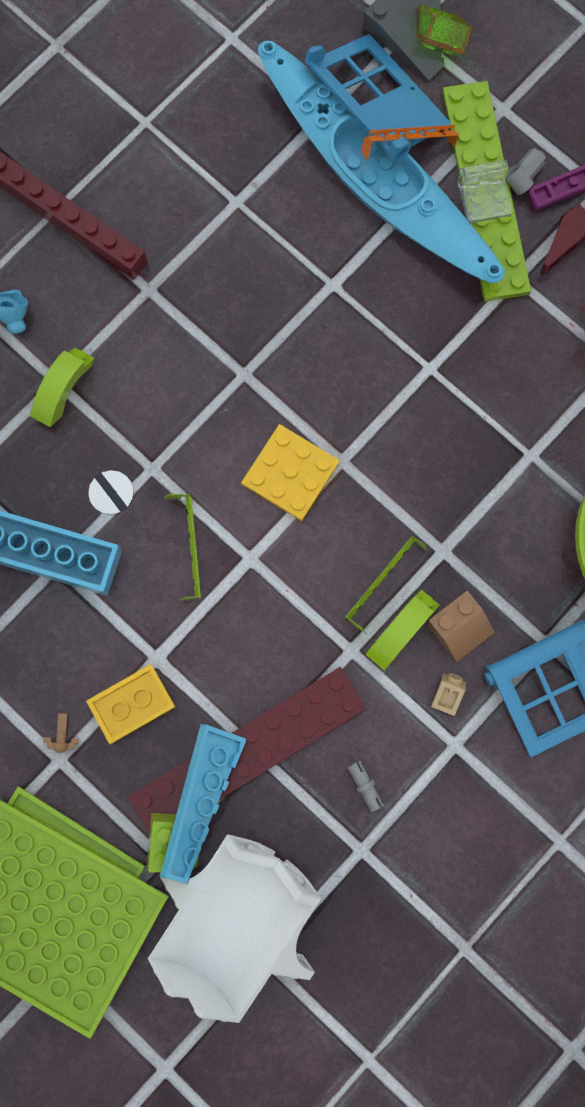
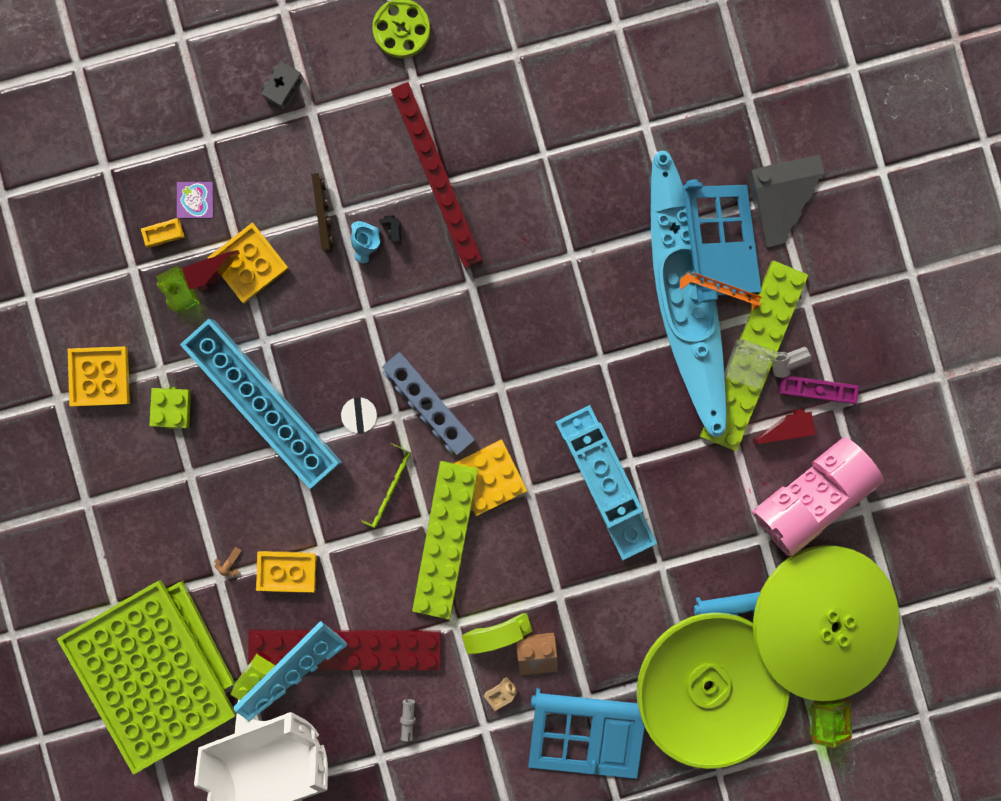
camera: 30 degrees right, 10 degrees up
(29, 275) = (395, 231): none -> black bracket
(57, 384) = (367, 319): lime arch -> none
(122, 409) = (391, 372): none -> sand blue brick
(284, 563) = (445, 539): none -> lime plate
(353, 611) = (502, 588): lime piece -> none
(421, 396) = (606, 482): none -> medium azure bracket
(442, 30) = (801, 217): clear neon green slope -> none

